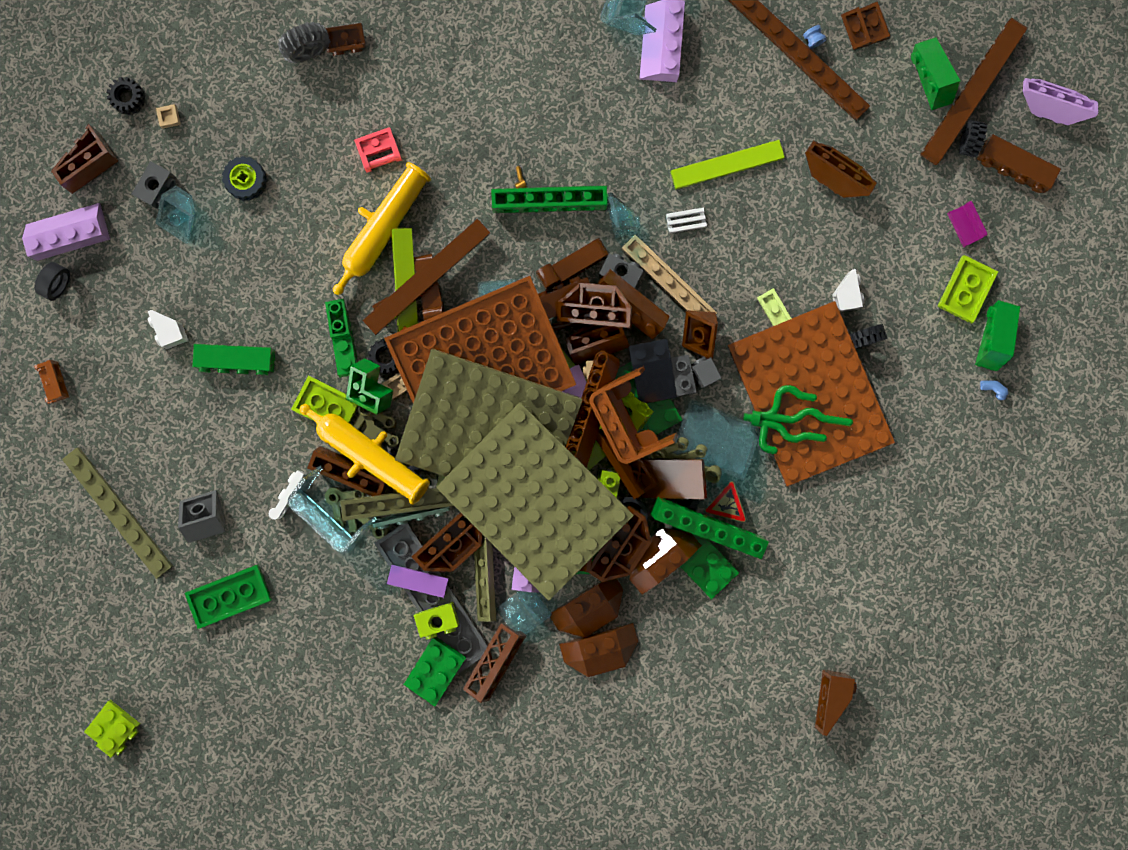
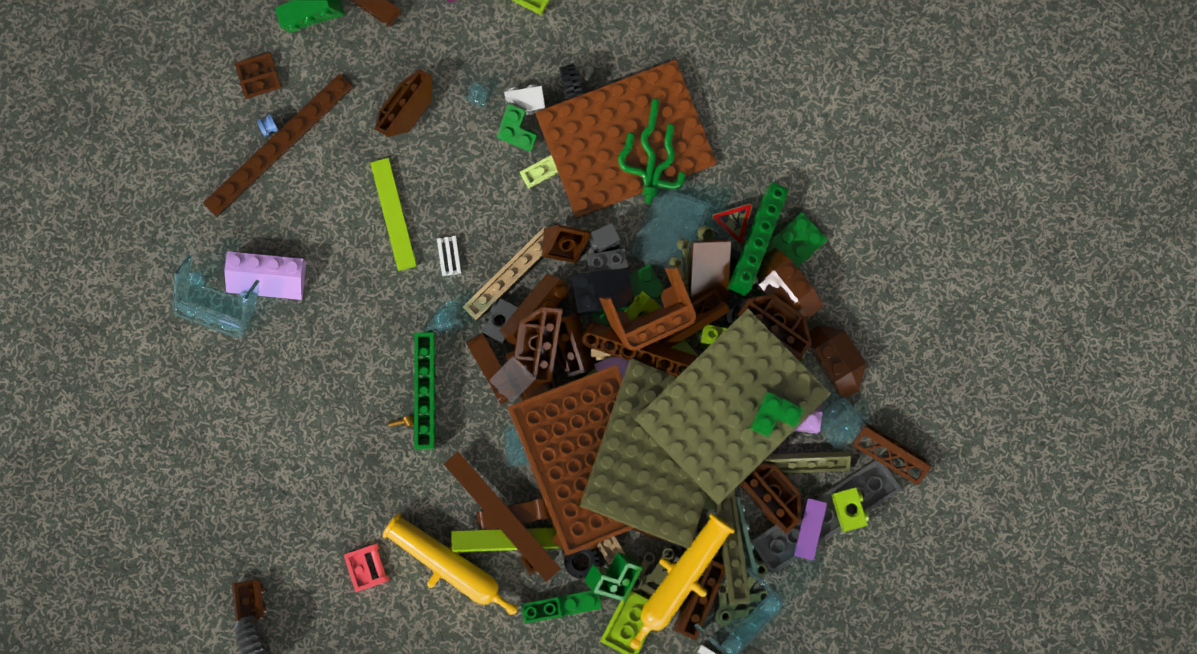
camera: 85 degrees left, 5 degrees down
(434, 671) = (900, 513): green plate -> none
(529, 540) = (774, 409): none -> green brick
(559, 281) = (512, 379): none -> clear piece
(600, 651) = (879, 348): reddish brown wedge -> none
(815, 279) = (513, 132): none -> green plate
(834, 697) = (922, 123): reddish brown slope -> none
(851, 243) = (477, 95): none -> clear light blue tile

